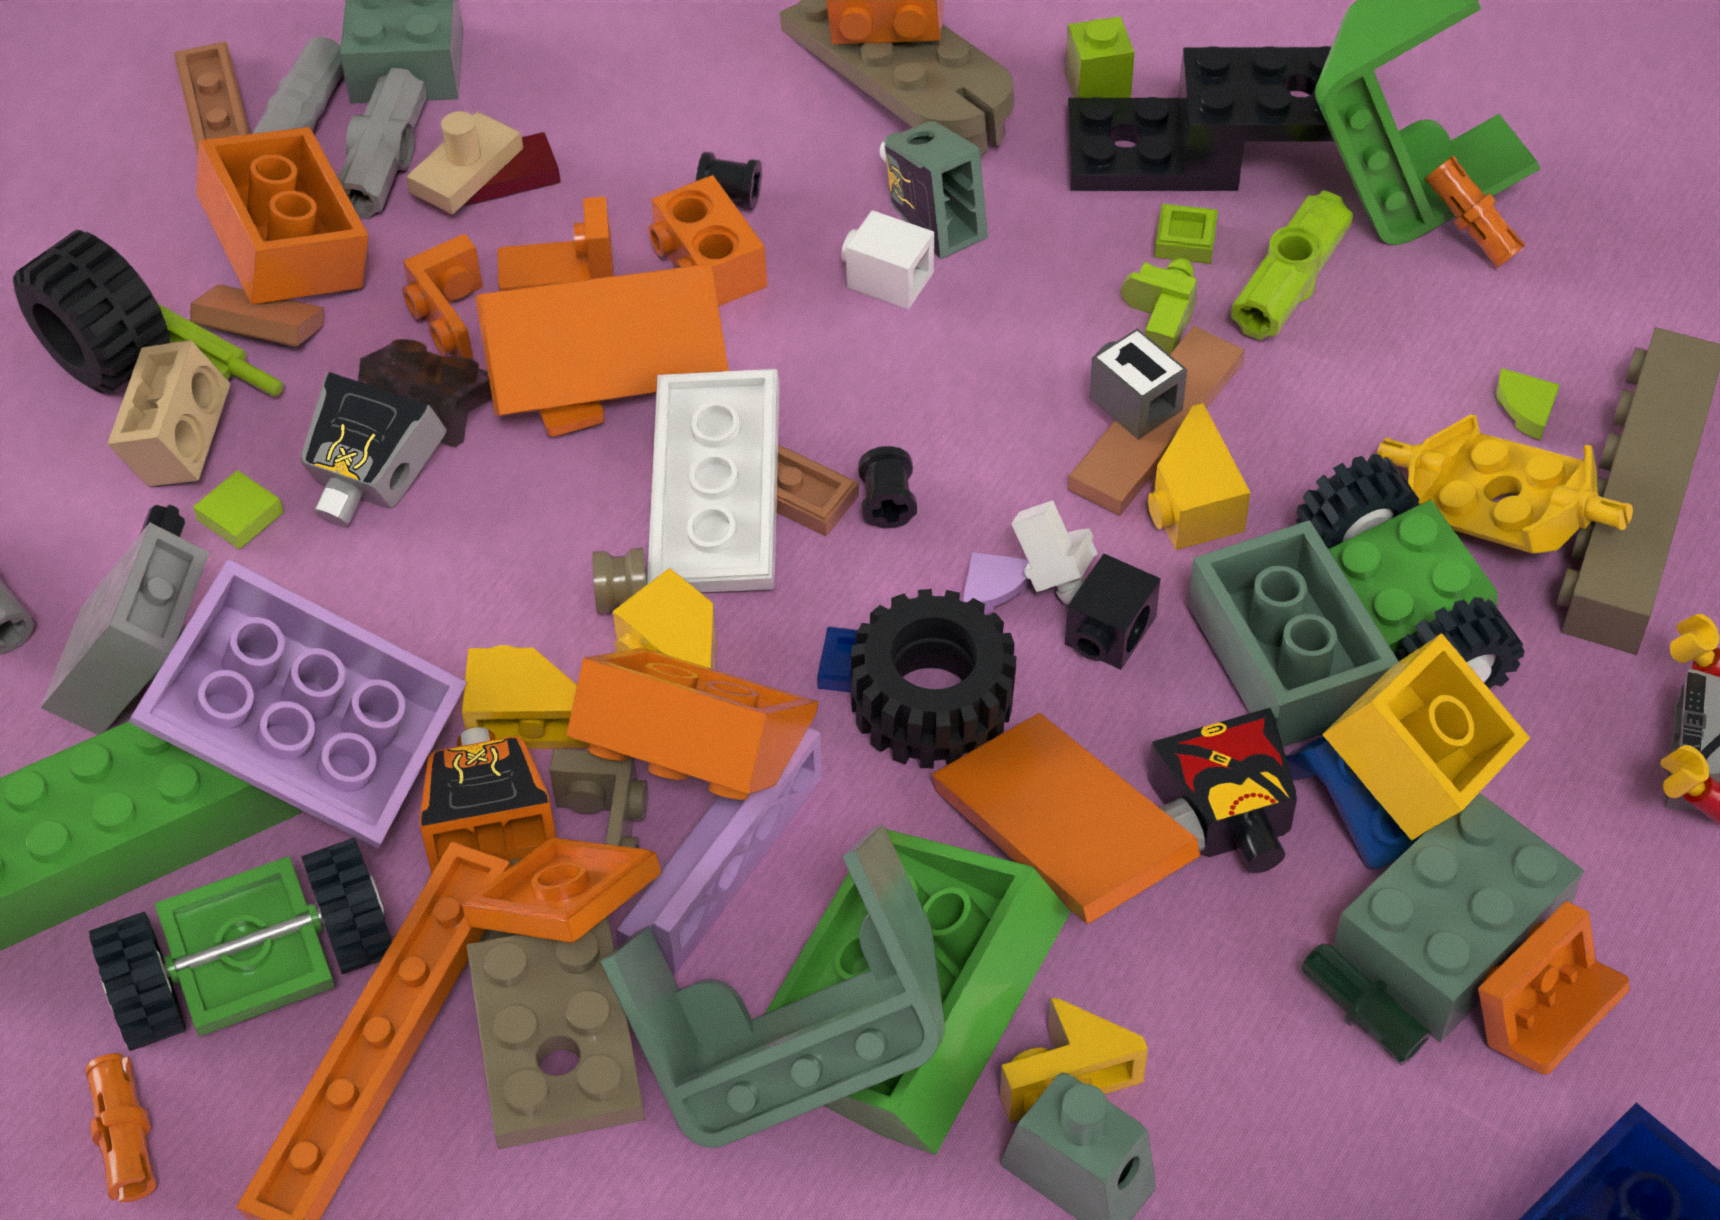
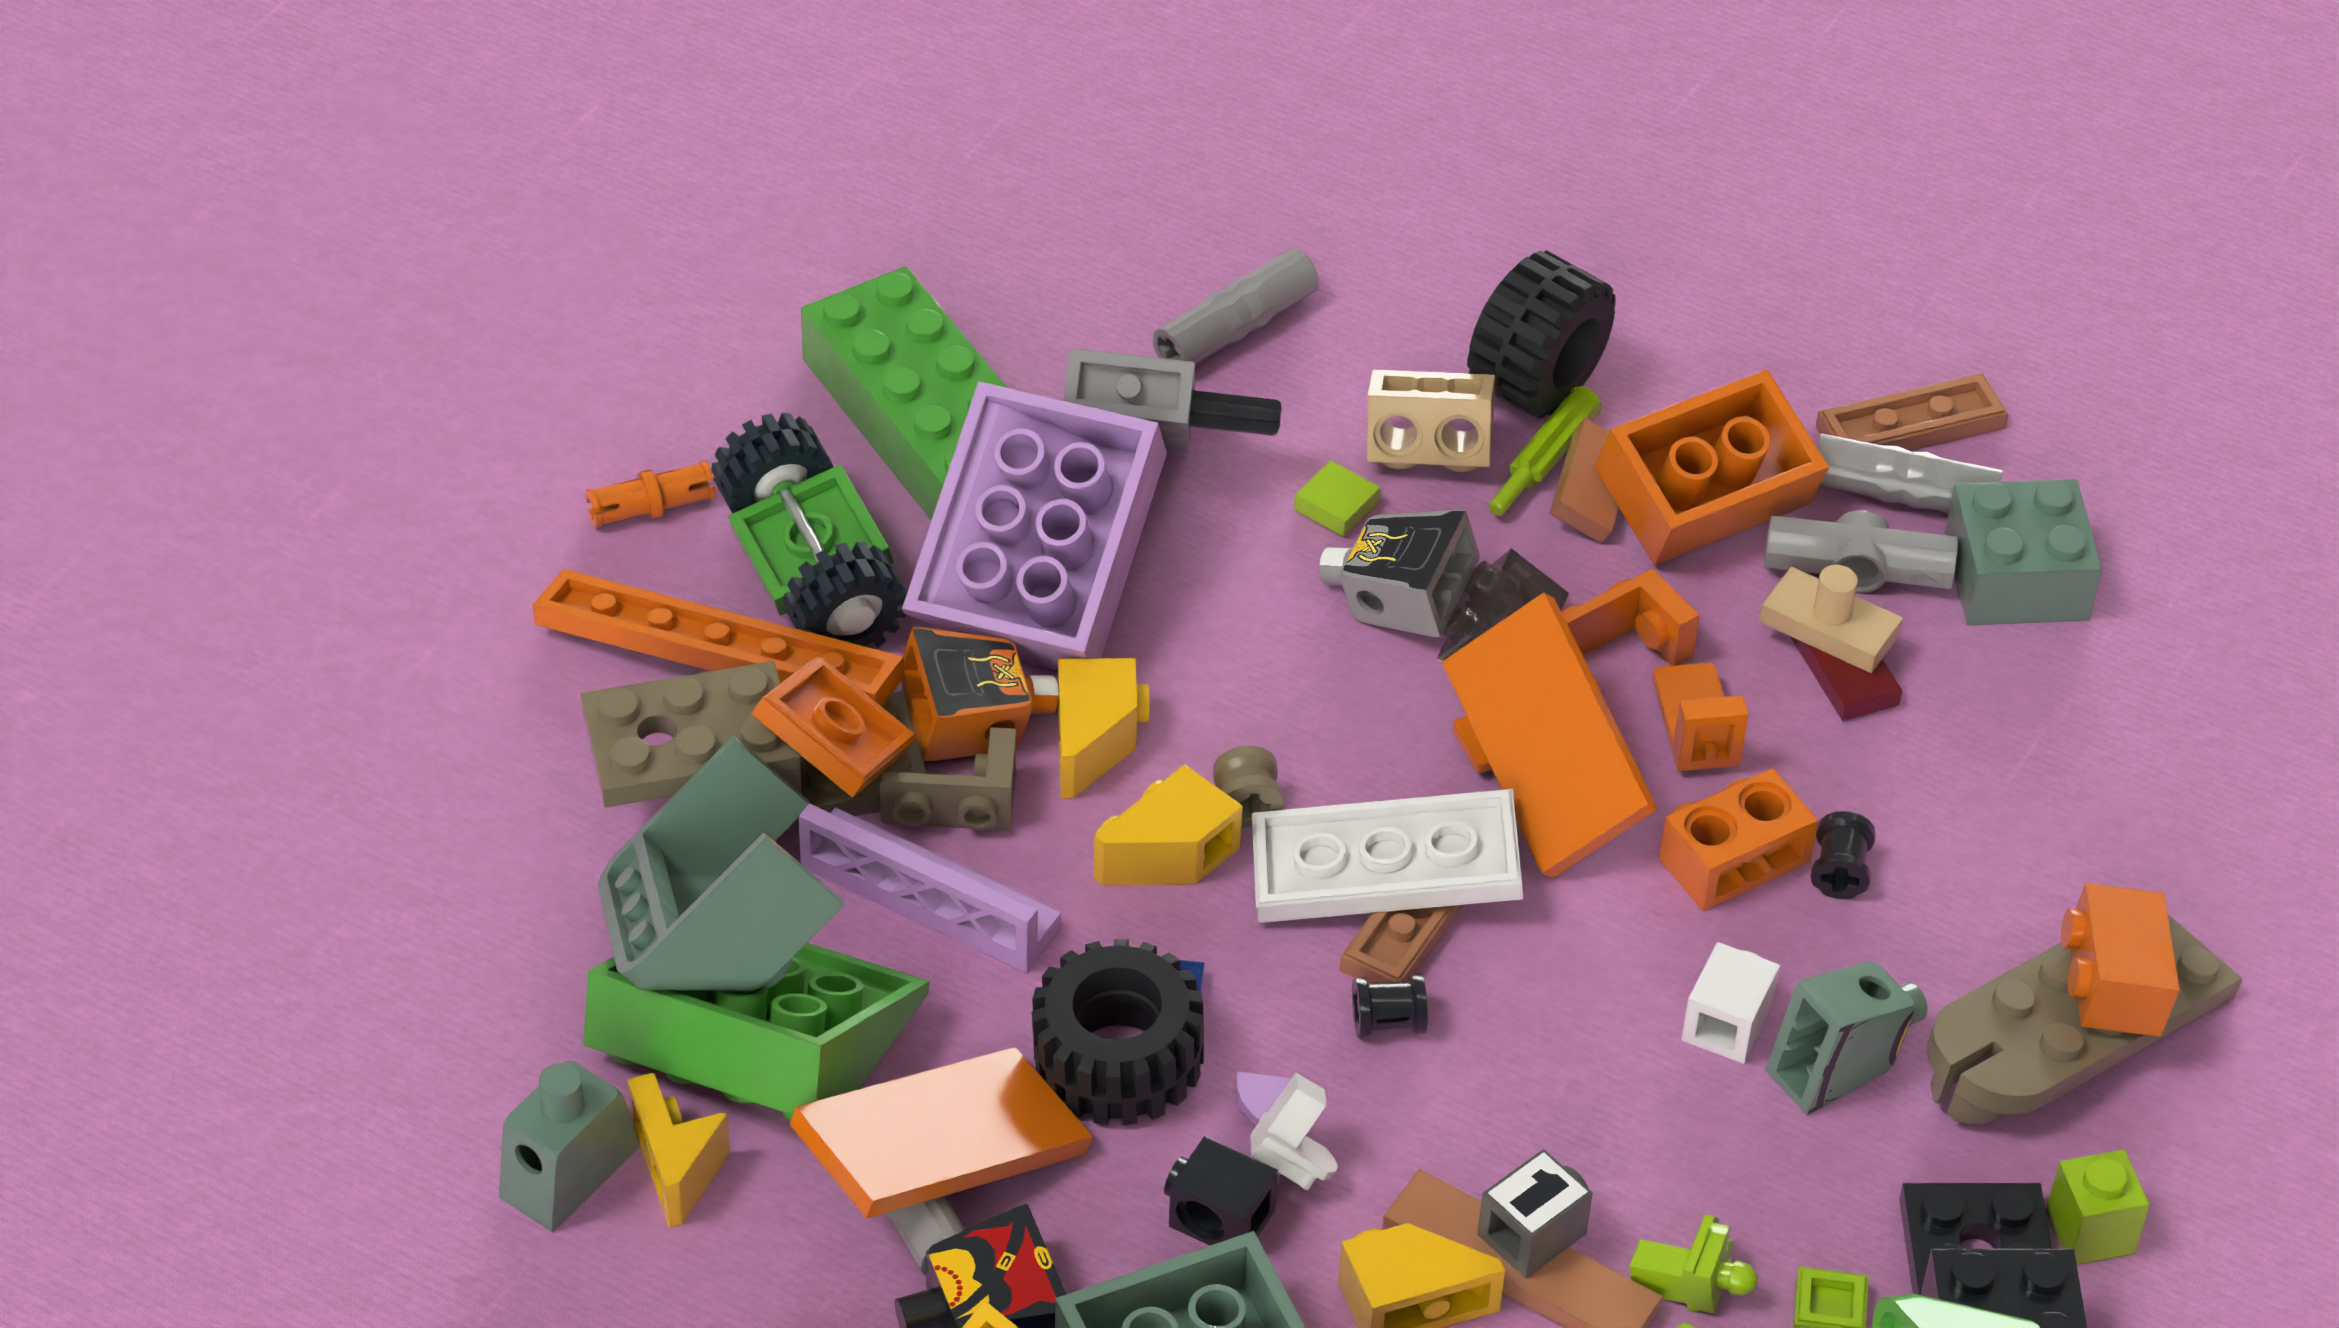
camera: 85 degrees right, 5 degrees down
(688, 720) = (1030, 808): orange slope -> none

